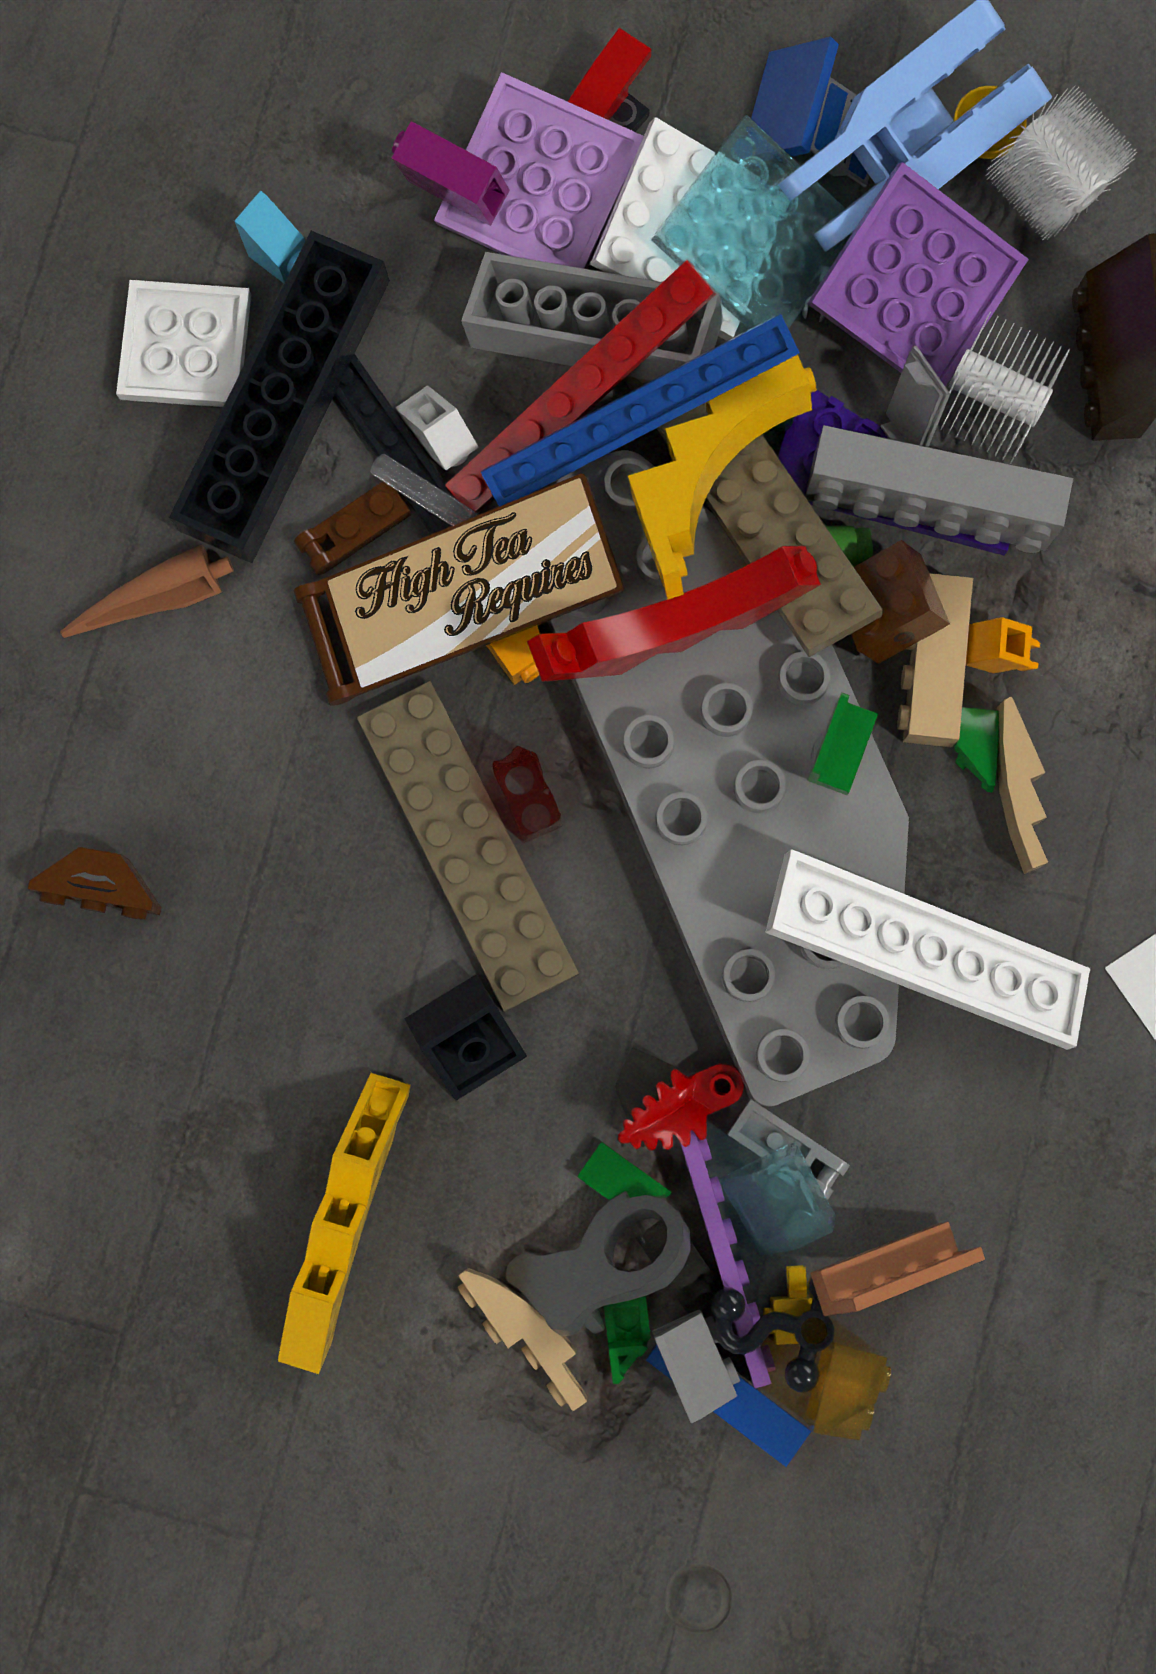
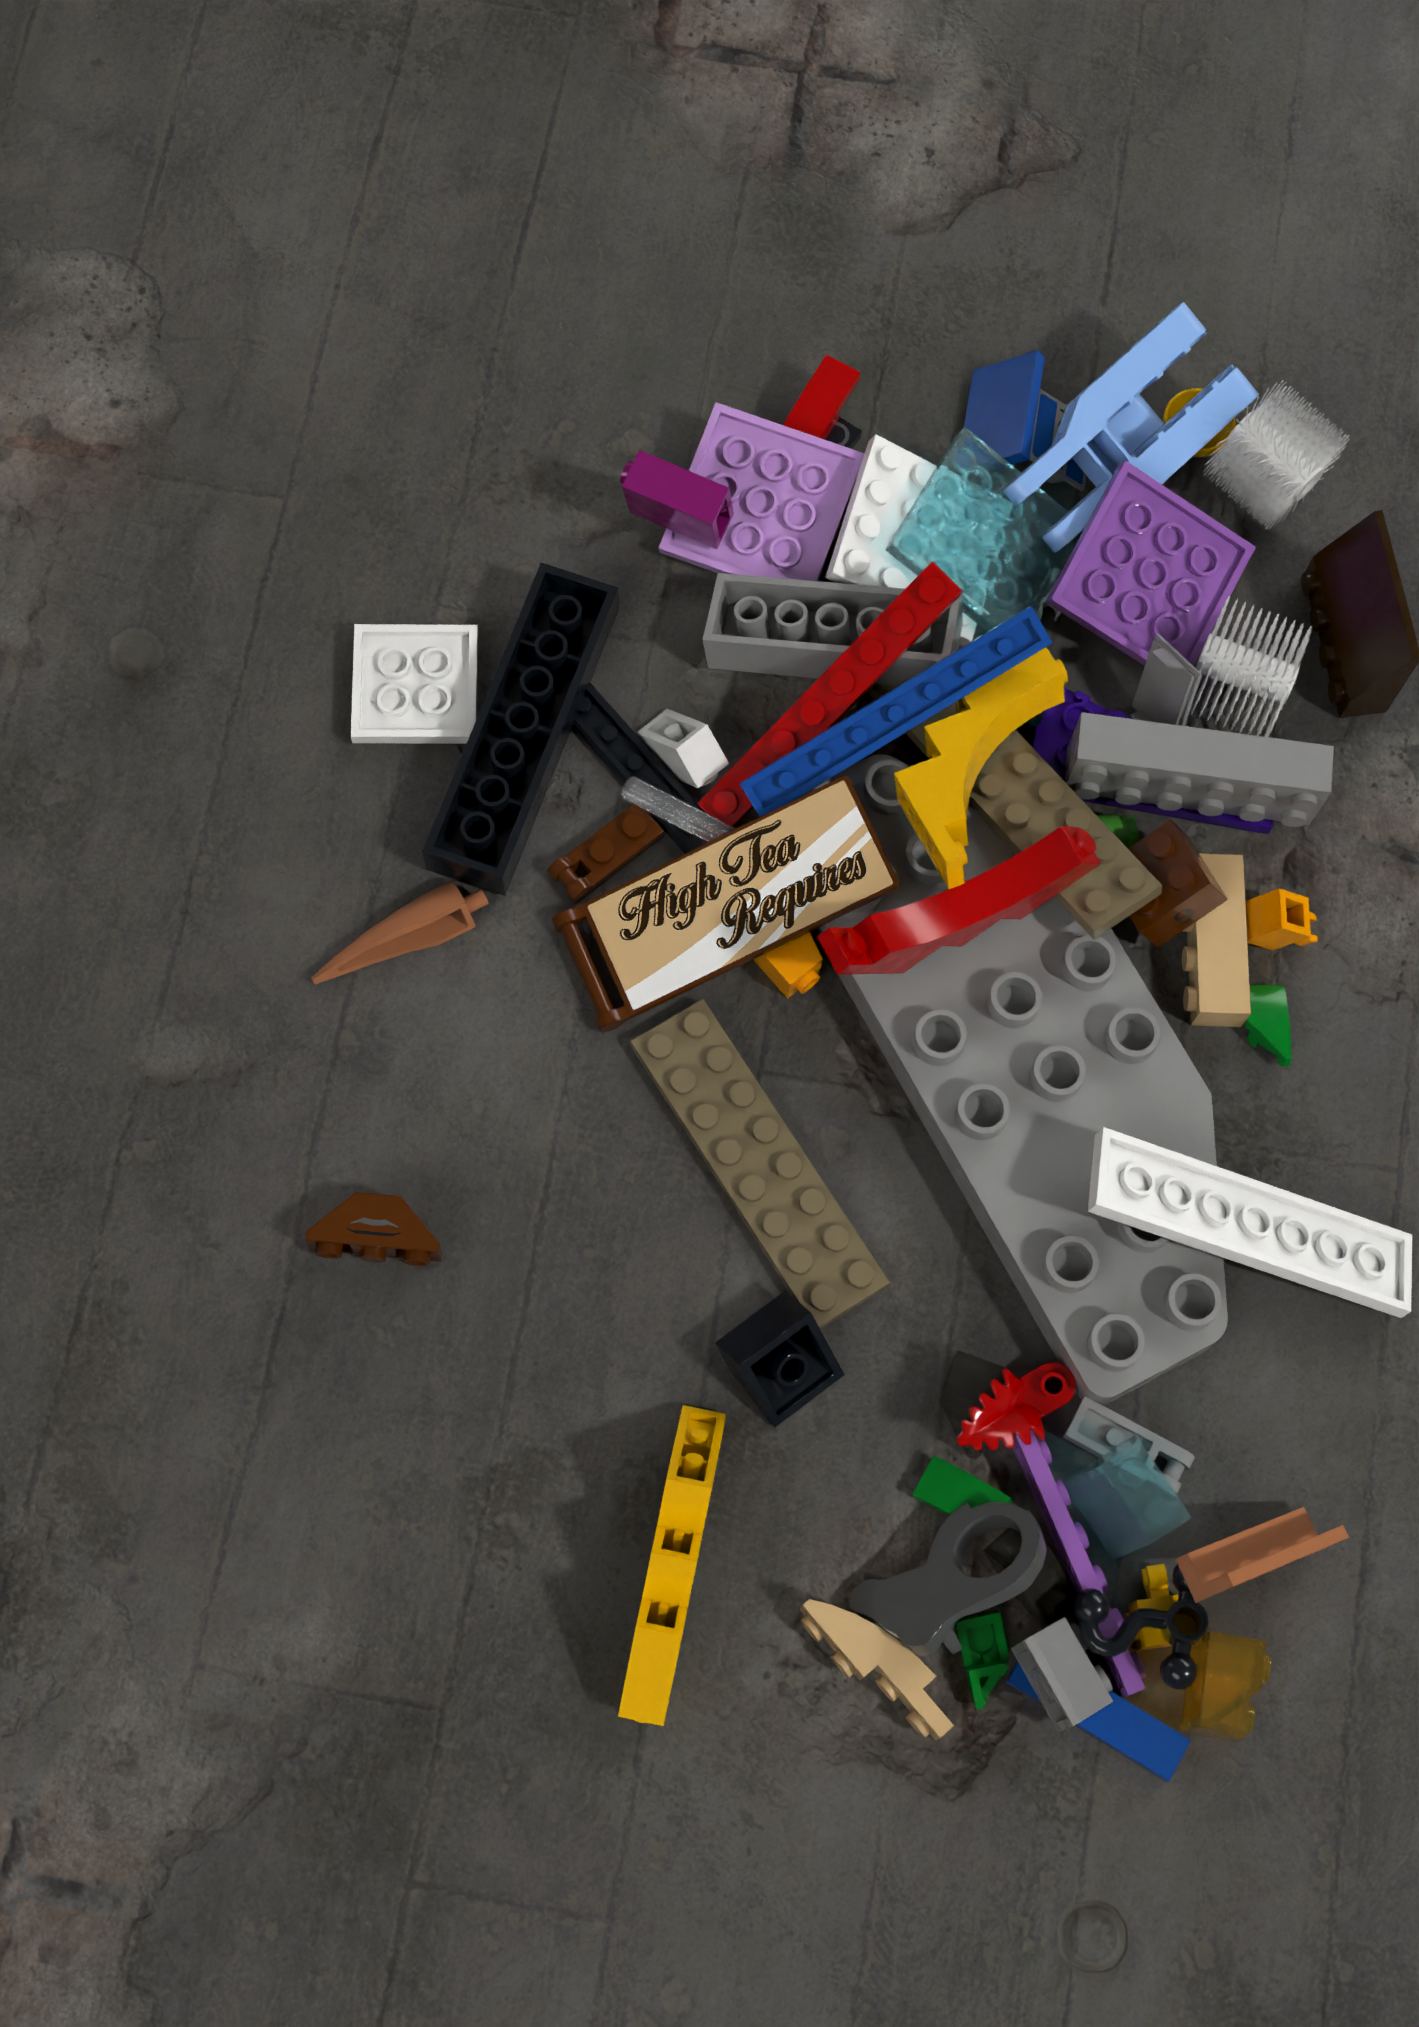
camera: 15 degrees left, 10 degrees down
(269, 236) = (497, 575): medium azure slope -> none
(525, 758) = (819, 1073): clear red piece -> none
(842, 746) = (1138, 1024): green panel -> none
(1017, 769) = (1311, 1050): tan slope -> none

